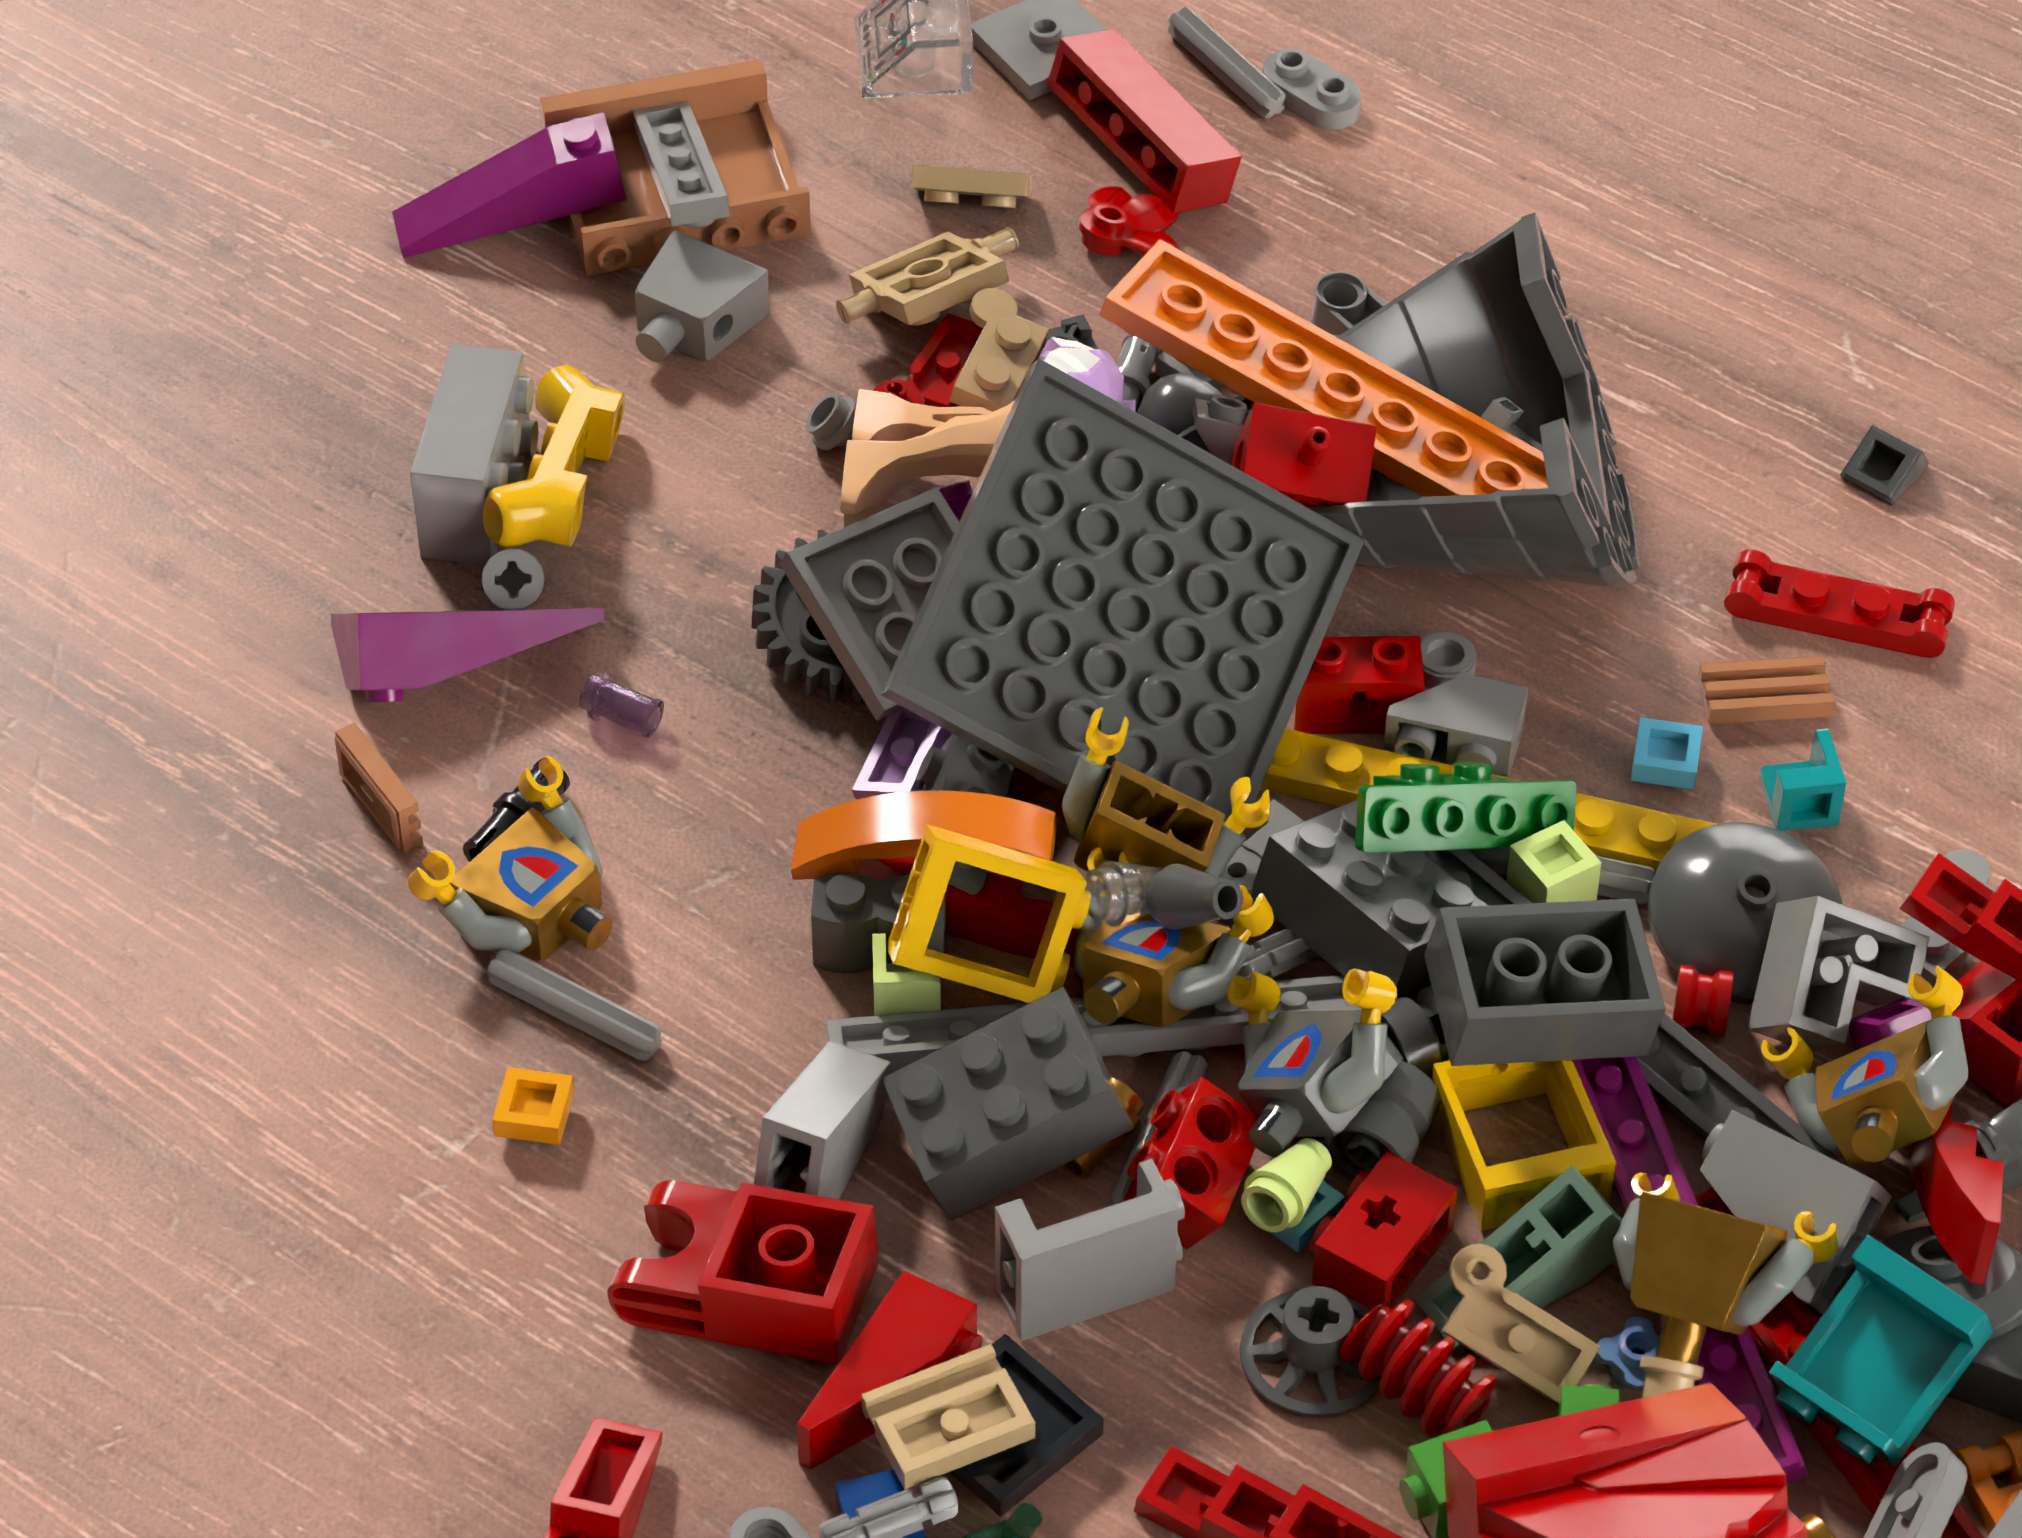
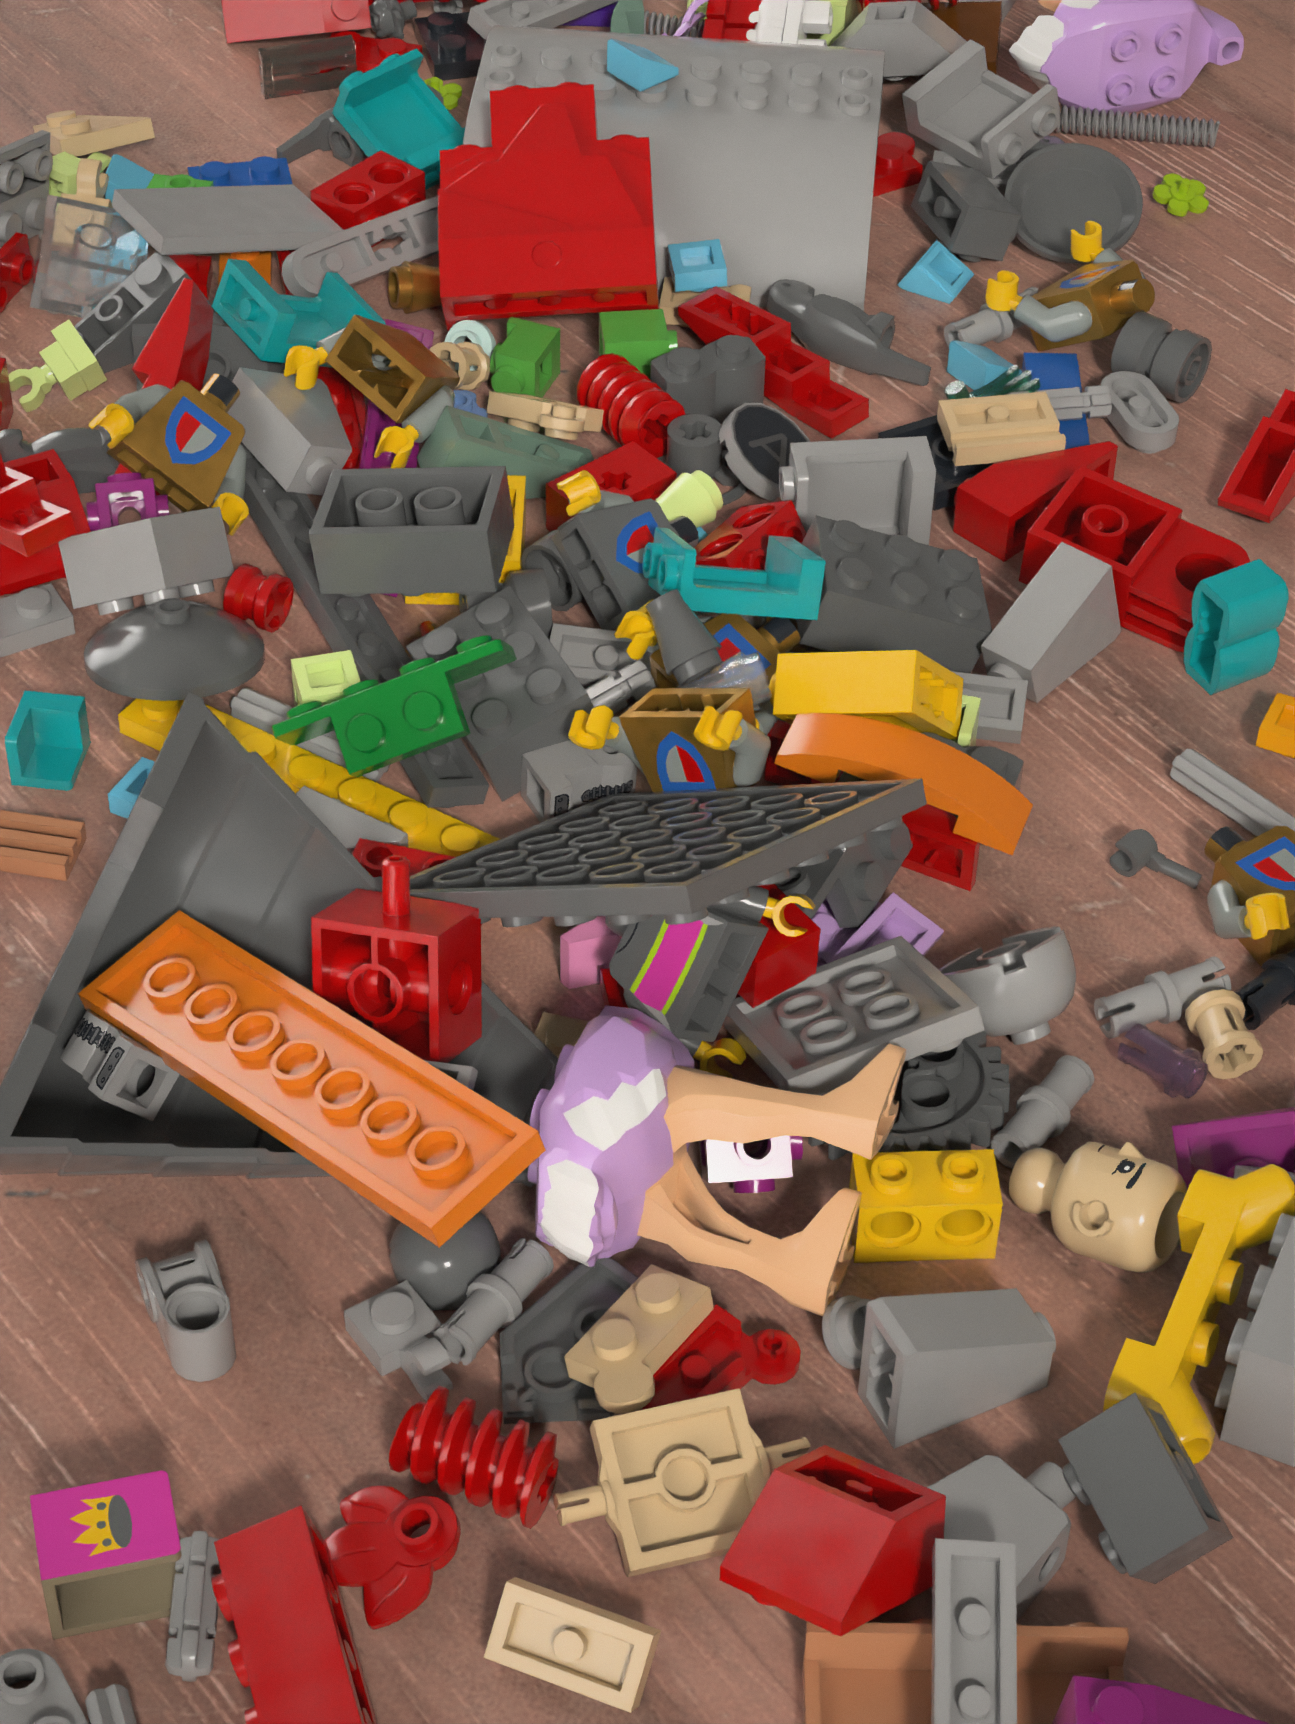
camera: 165 degrees left, 5 degrees down
(569, 735) = (1223, 1034): none -> tan bush
(583, 324) = (1142, 1490): none -> dark grey brick
(612, 1165) = (1235, 626): none -> teal brick
(630, 764) = (1160, 997): none -> light grey pin
(646, 541) = (1104, 1202): none -> tan piece
(677, 926) = (1141, 850): none -> dark grey hand
(719, 634) = (1043, 1110): none -> light grey pin
(750, 390) = (949, 1358): none -> light grey slope
(777, 704) = (1018, 982): none -> light grey cylinder
(788, 506) = (926, 1206): none -> yellow brick
(801, 236) = (836, 1541): none -> red slope
(1077, 266) = (476, 1457): none -> red piece
(1177, 1010) = (784, 589): none -> teal panel
(1222, 1336) = (759, 445): none -> tile
(1252, 173) = (193, 1609): none -> light grey axle
(1317, 155) = (106, 1553): none -> piece
(1350, 1441) = (714, 377): none -> dark grey brick

